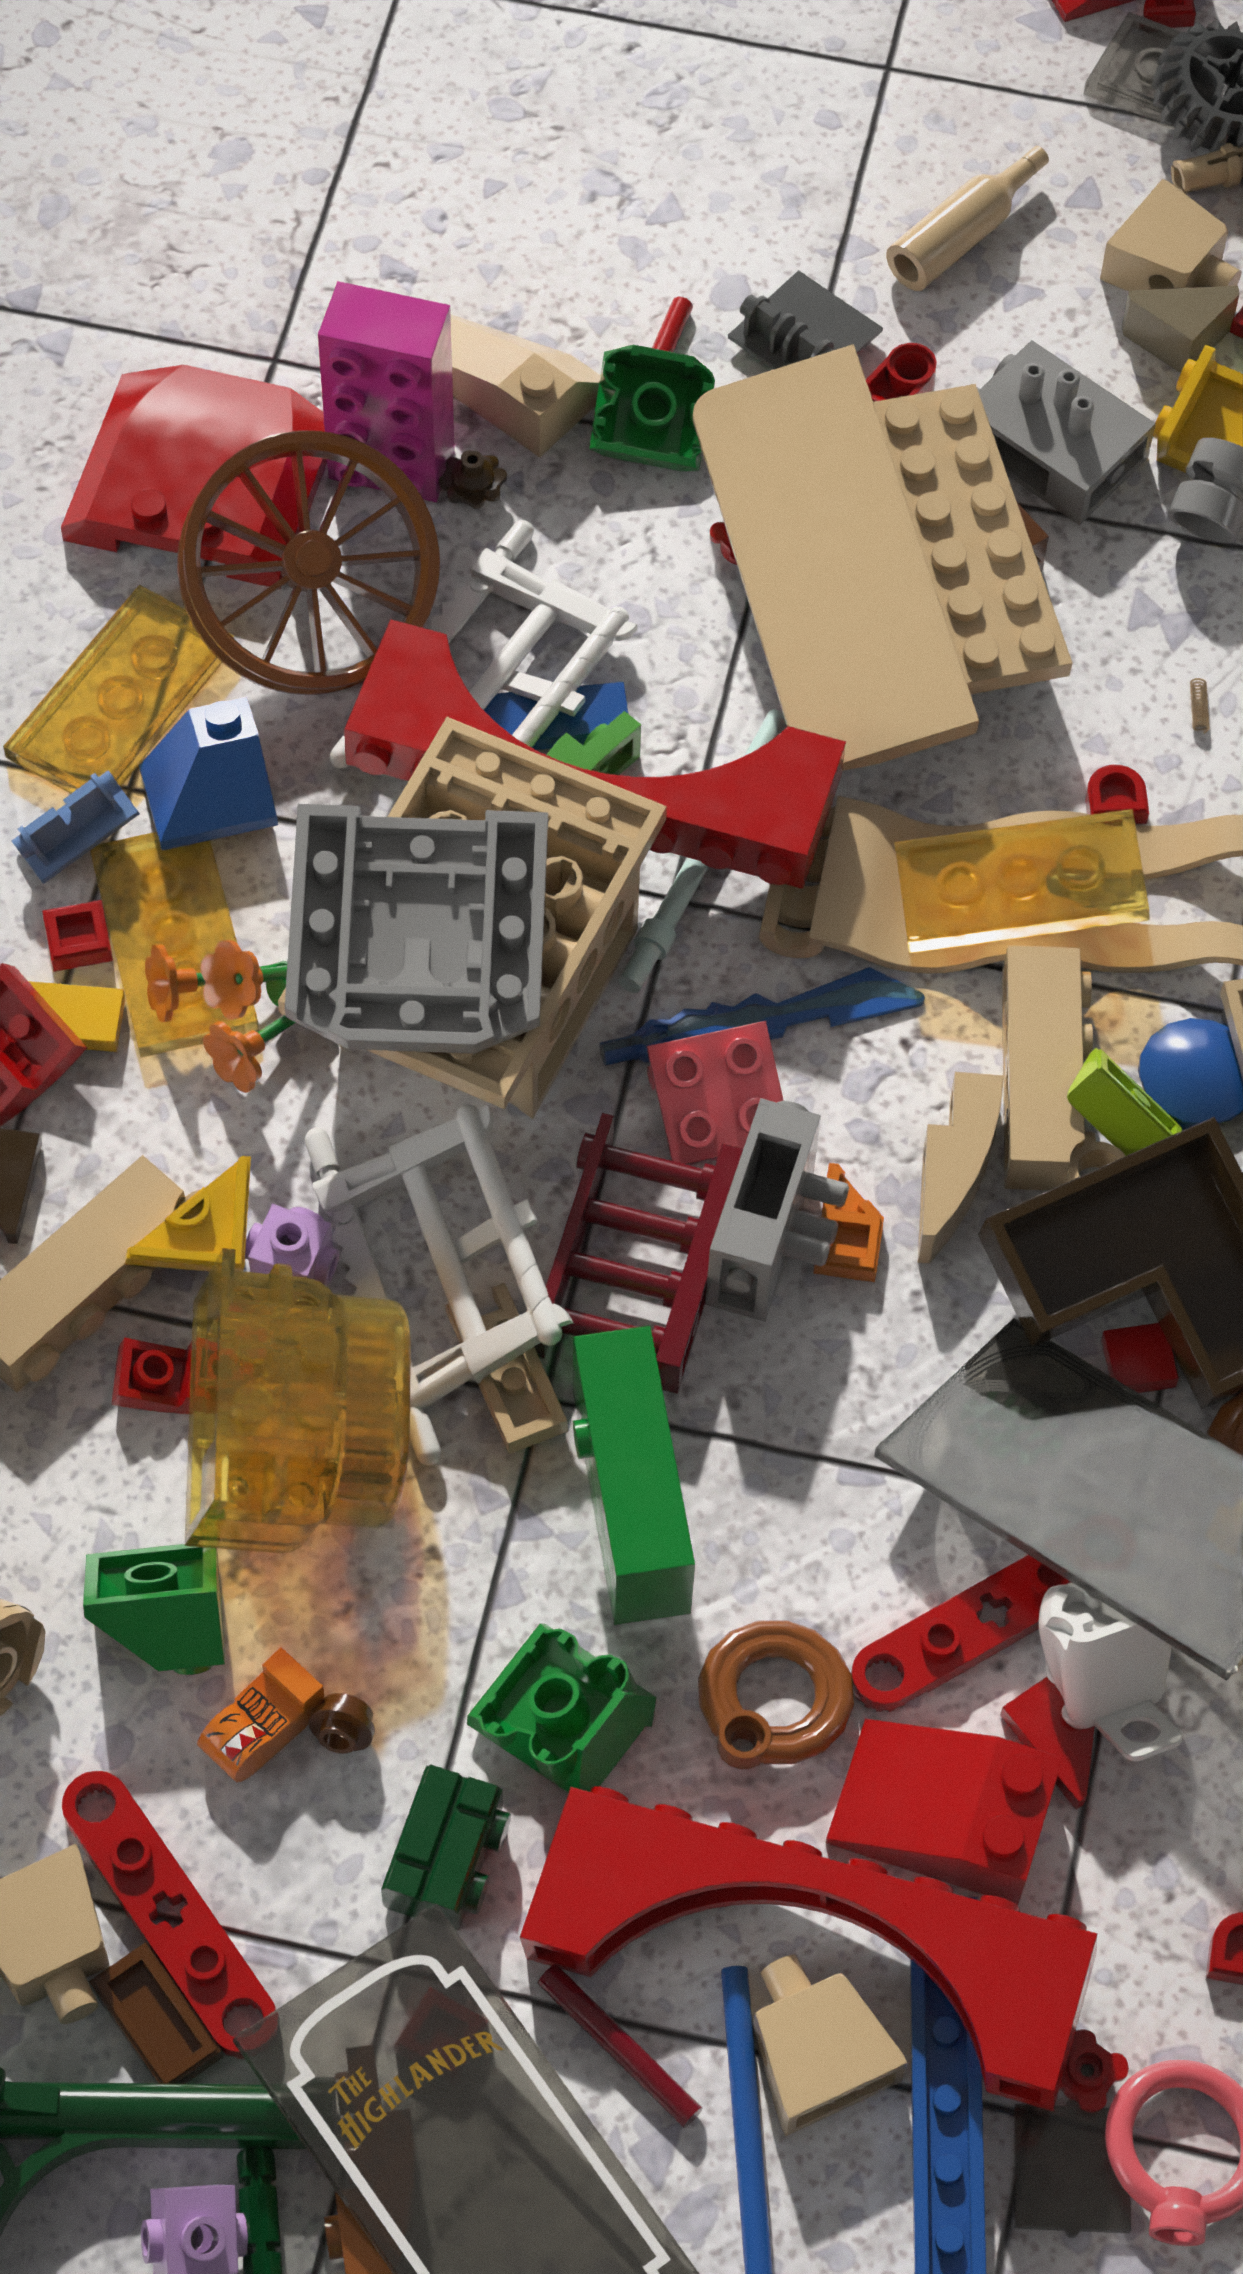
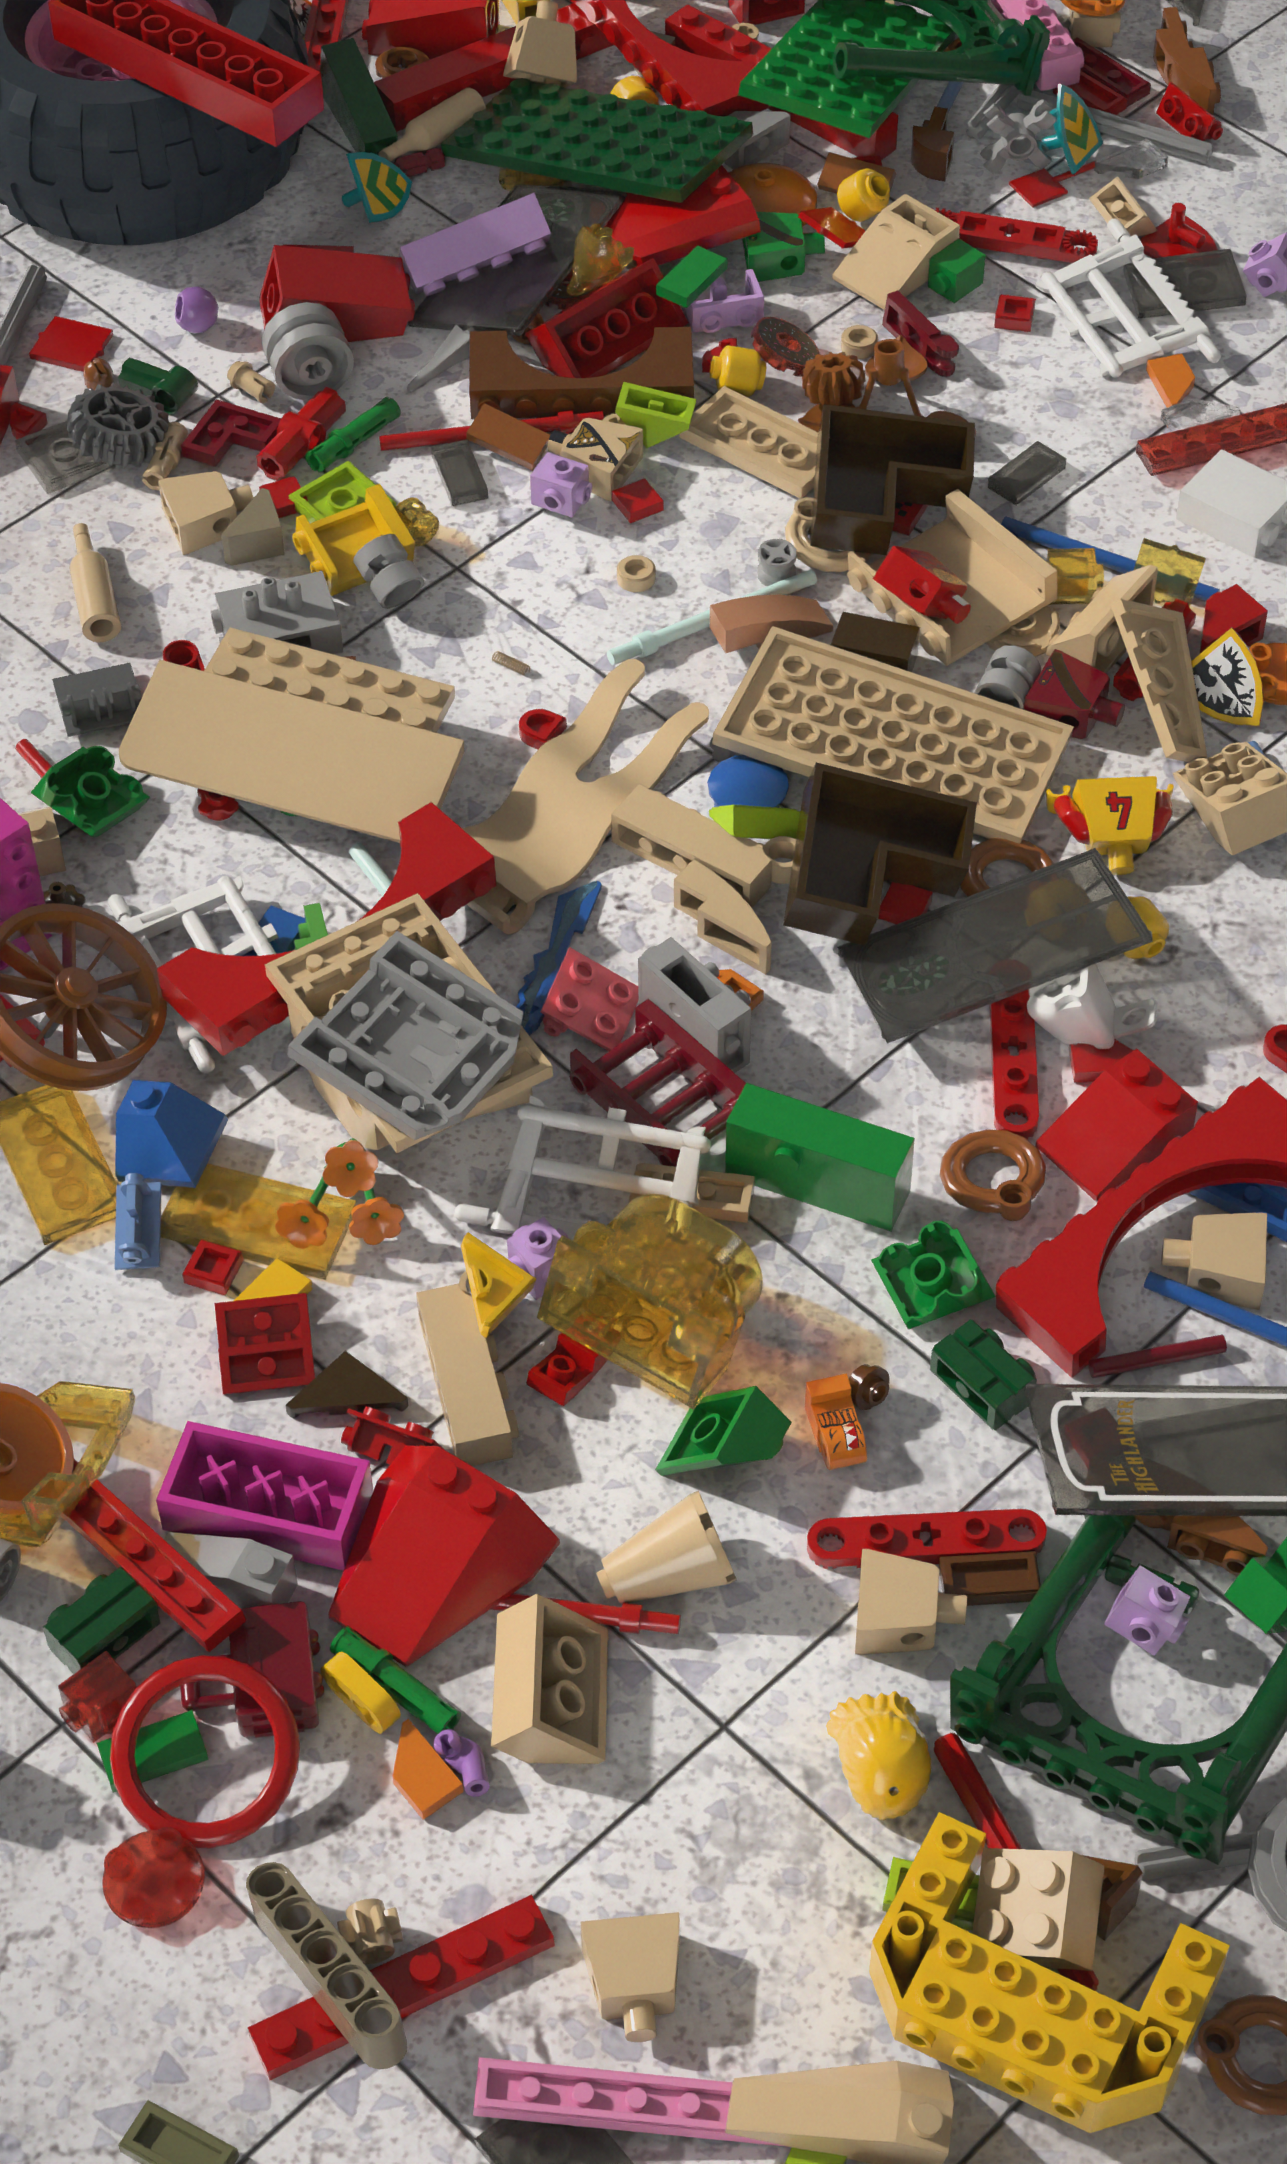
camera: 55 degrees left, 10 degrees down
(1021, 881) = (572, 788): clear yellow tile -> none

